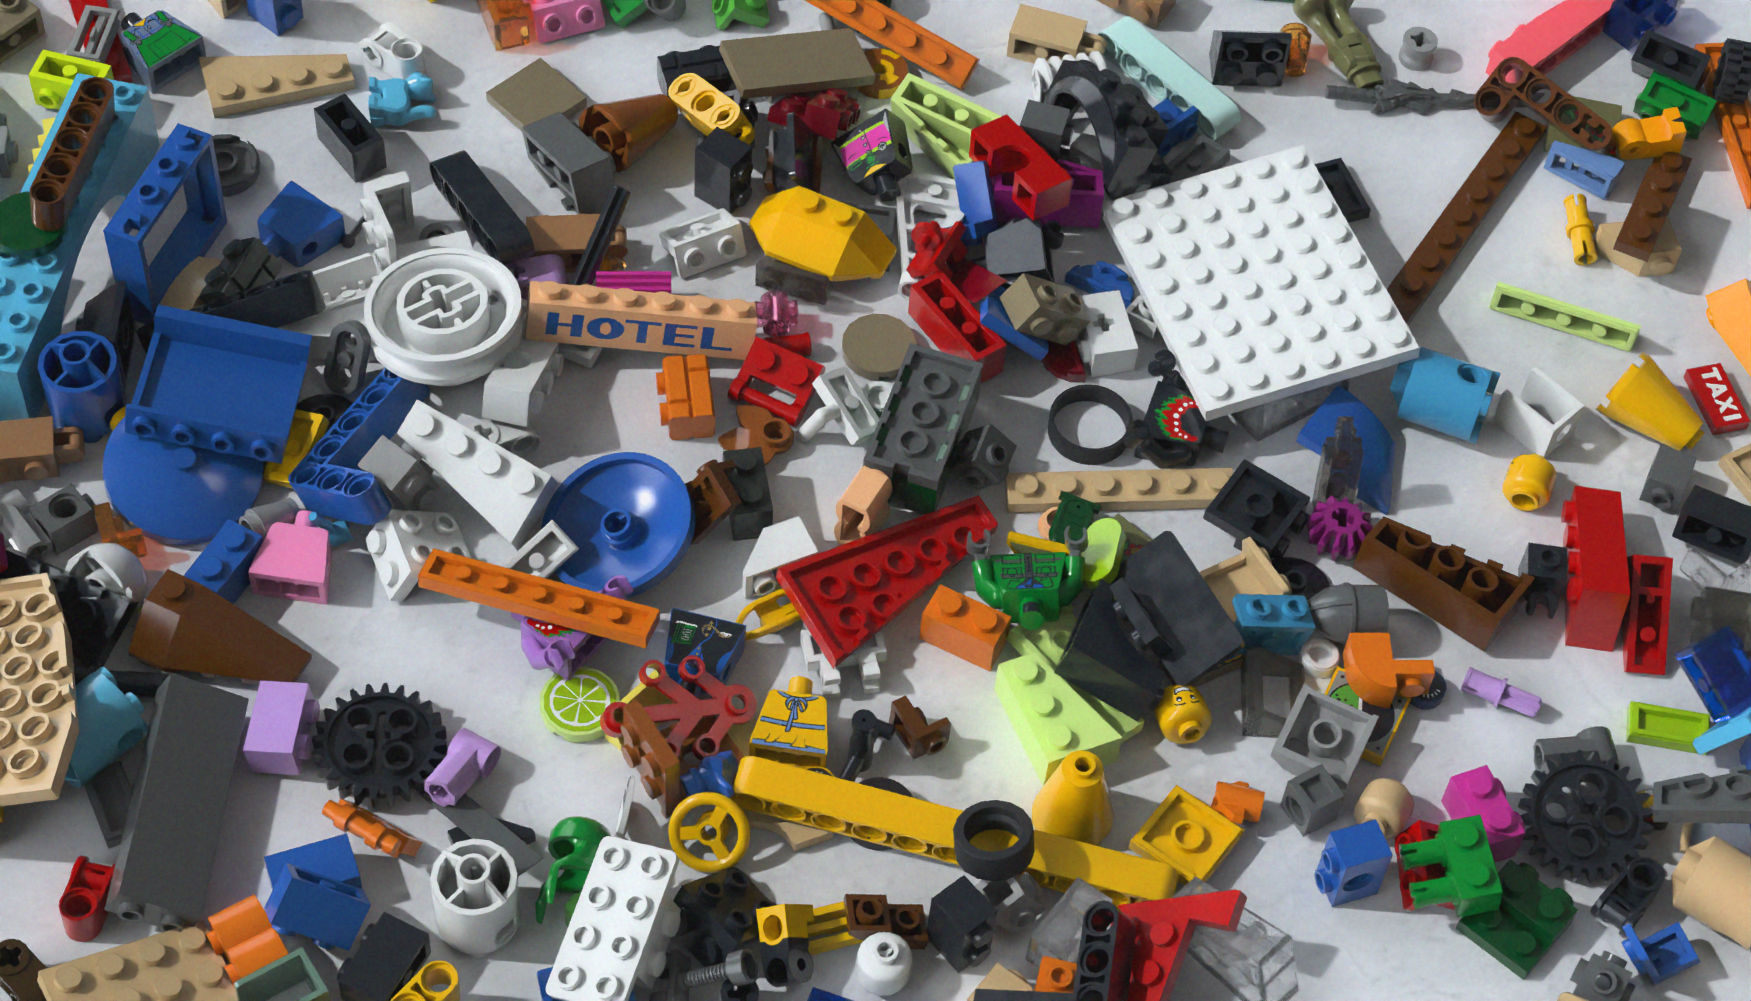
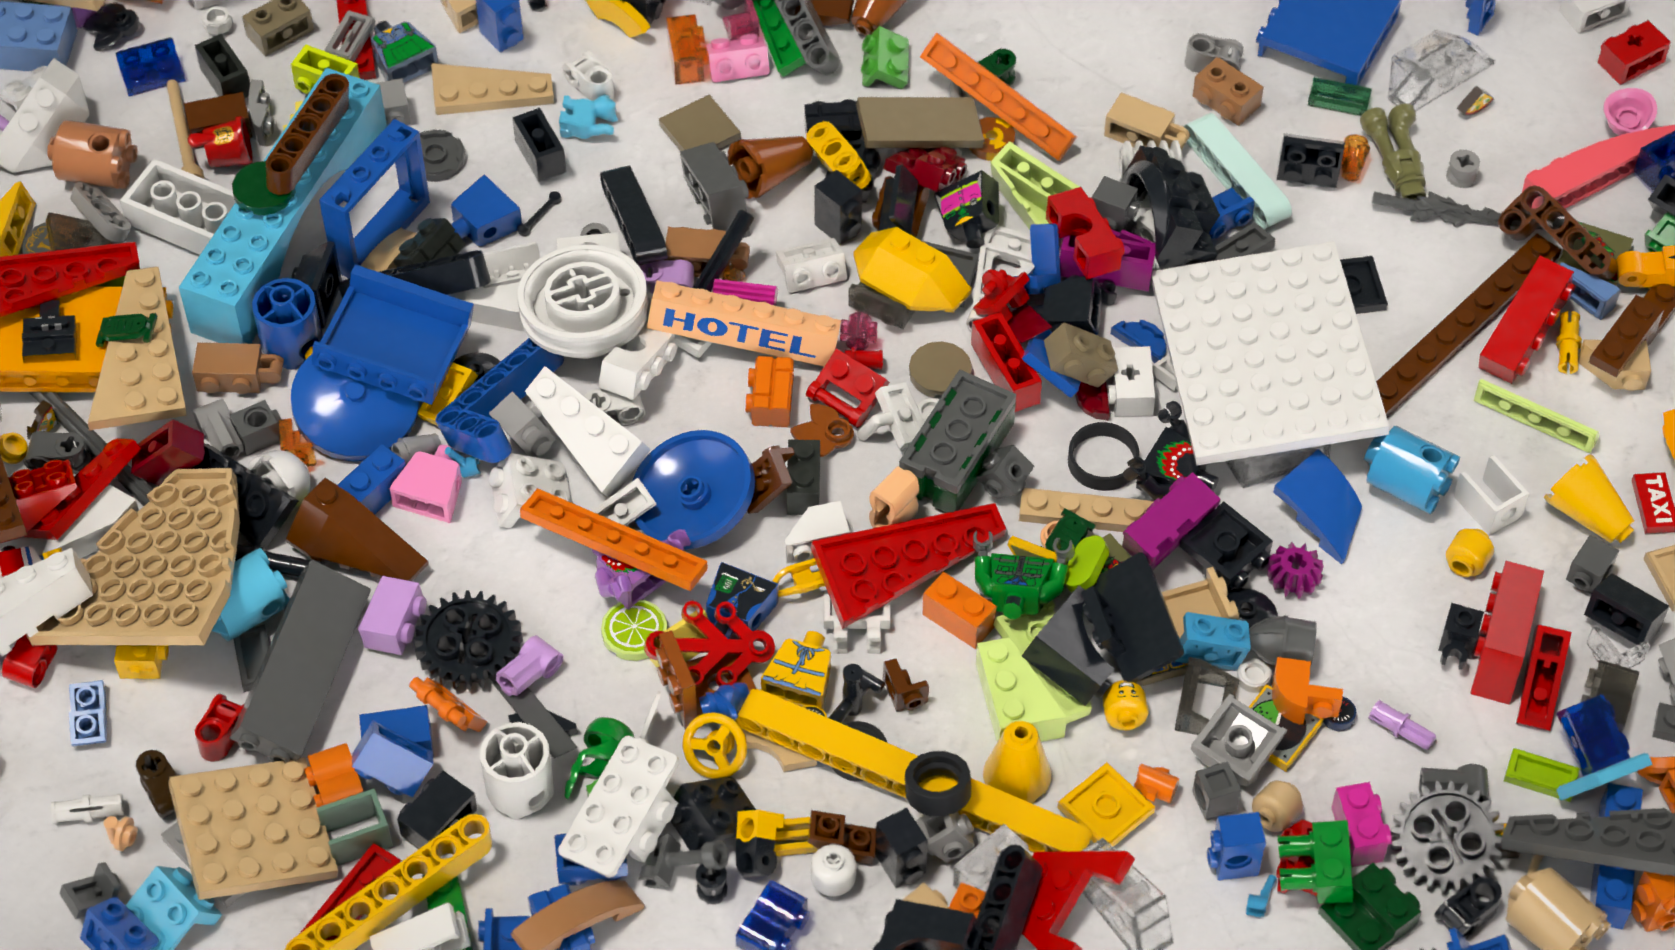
camera: 15 degrees right, 0 degrees up
(165, 107) = (395, 101): none -> light grey brick
(347, 354) = (501, 323): dark grey plate -> none
(387, 211) = (557, 209): white bracket -> none
(1189, 487) = (1170, 519): none -> magenta wedge
(1339, 464) = (1302, 516): clear smoke hinge -> none
(1385, 929) = (1257, 904): none -> dark azure hand
(1443, 582) = (1372, 626): reddish brown wedge -> none
(1531, 210) = (1527, 320): none -> red wedge

